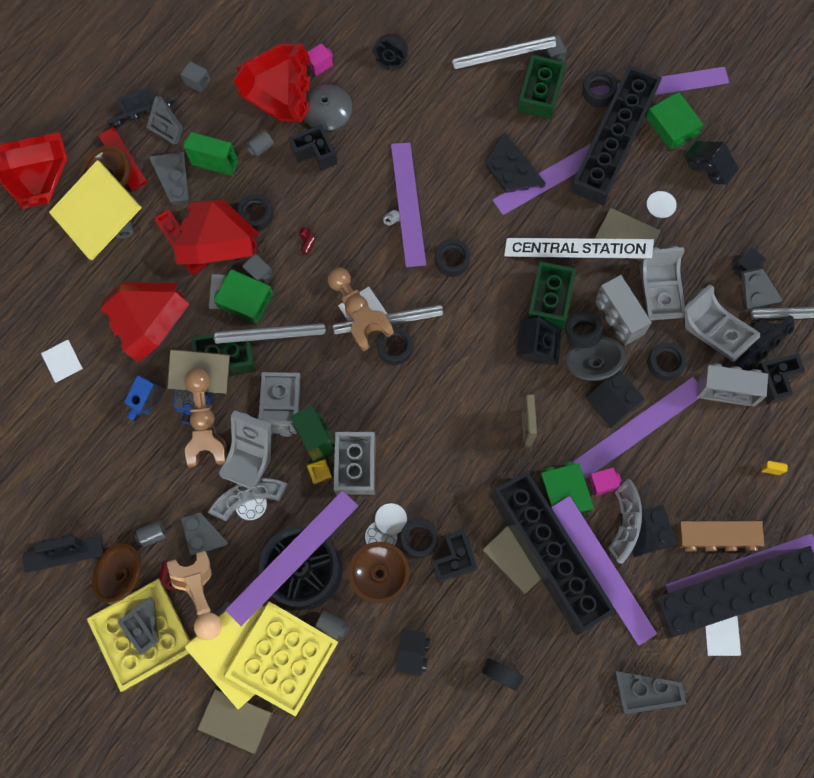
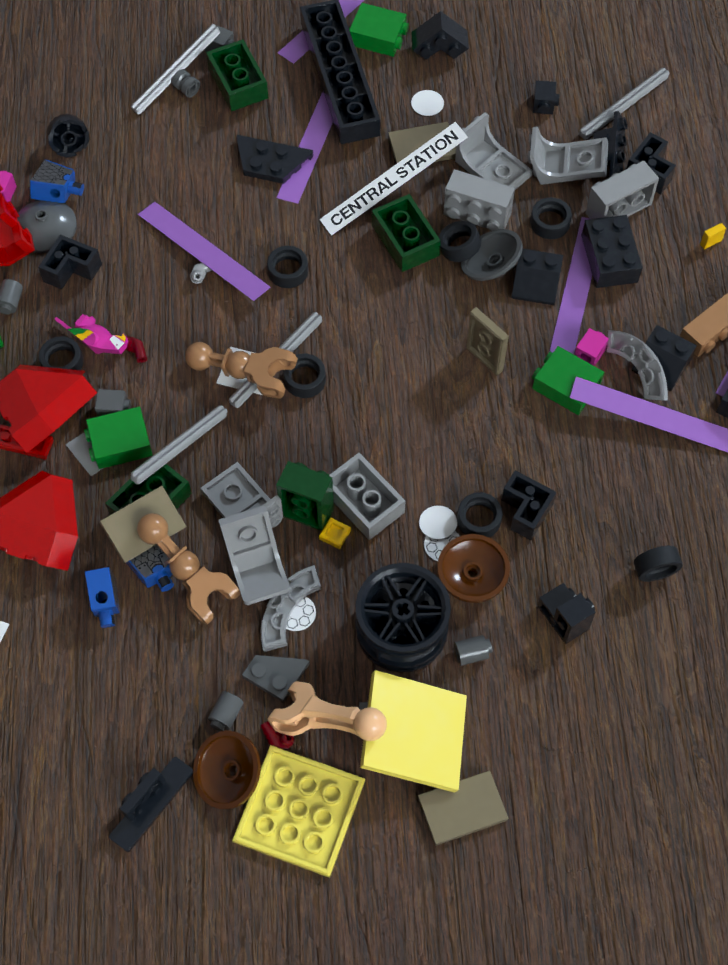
camera: 45 degrees left, 10 degrees down
(141, 626) = (296, 797): dark grey wing -> none
(281, 658) = (456, 710): light yellow plate -> none
(287, 213) = (96, 336): none -> dark pink animal
(291, 558) = (391, 607): medium lavender sticker -> none
(353, 81) = (54, 183): none -> torso
(503, 64) = (186, 83): none -> dark grey wheel
(512, 560) = (578, 466): dark tan tile -> none
(539, 341) = (428, 279): black slope -> none
(552, 553) = (604, 434): black brick -> none
(599, 76) = (288, 33): black tyre -> none
(686, 421) = (611, 251): none -> black brick
(758, 289) = (570, 110): dark grey wing -> none

